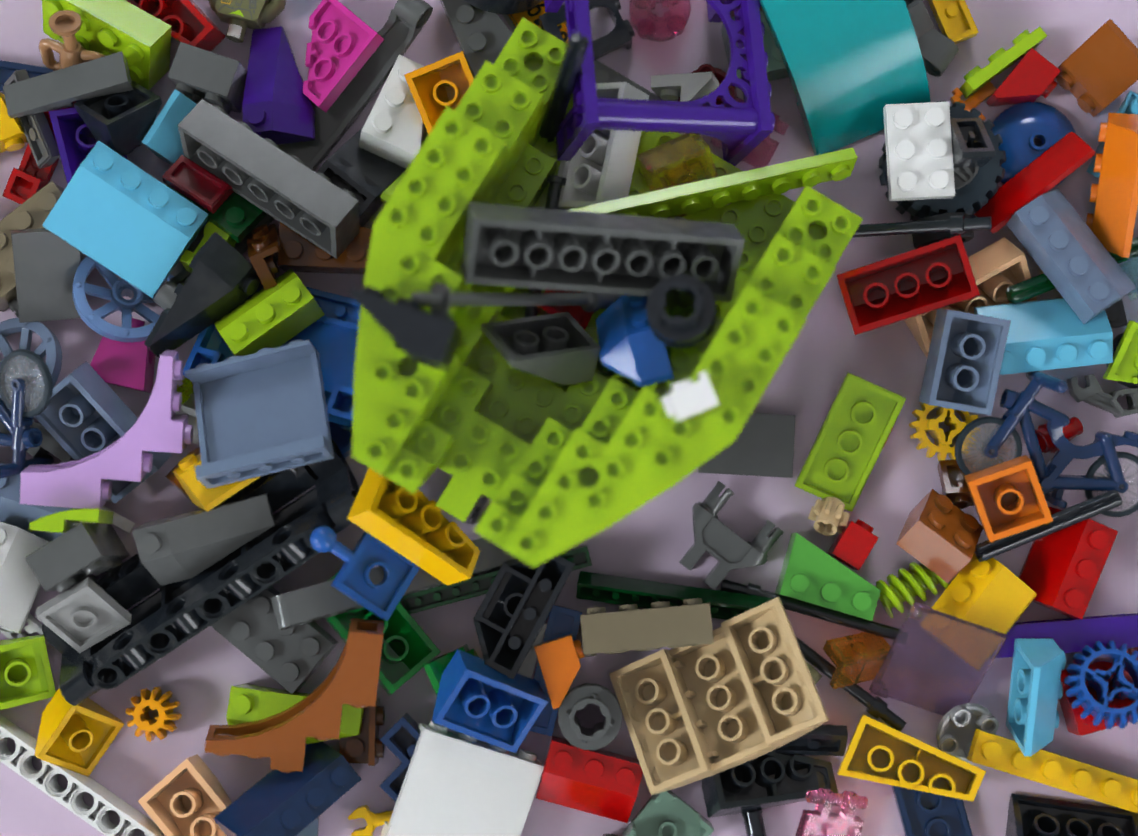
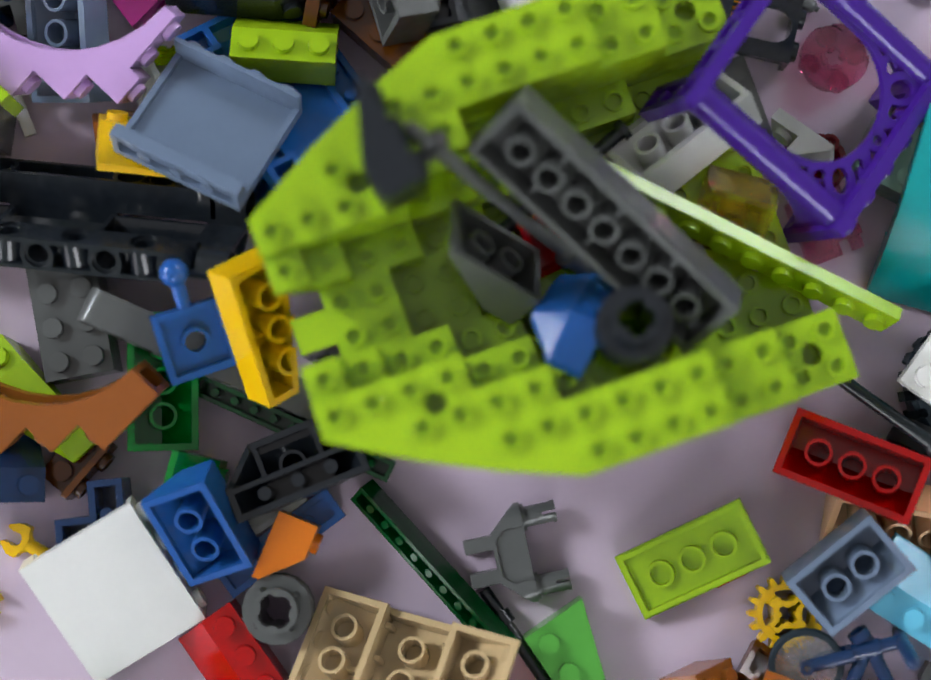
camera: 35 degrees right, 0 degrees up
(193, 541) = (70, 187): dark grey wedge -> none
(564, 85) = (694, 51): black axle -> none
(646, 627) = (386, 574): dark tan wedge -> none
(690, 398) = (576, 407): white brick -> none
(760, 449) = (610, 499): dark grey tile -> none
(829, 516) = (622, 607): tan gear -> none
(853, 544) = (624, 648): red brick -> none

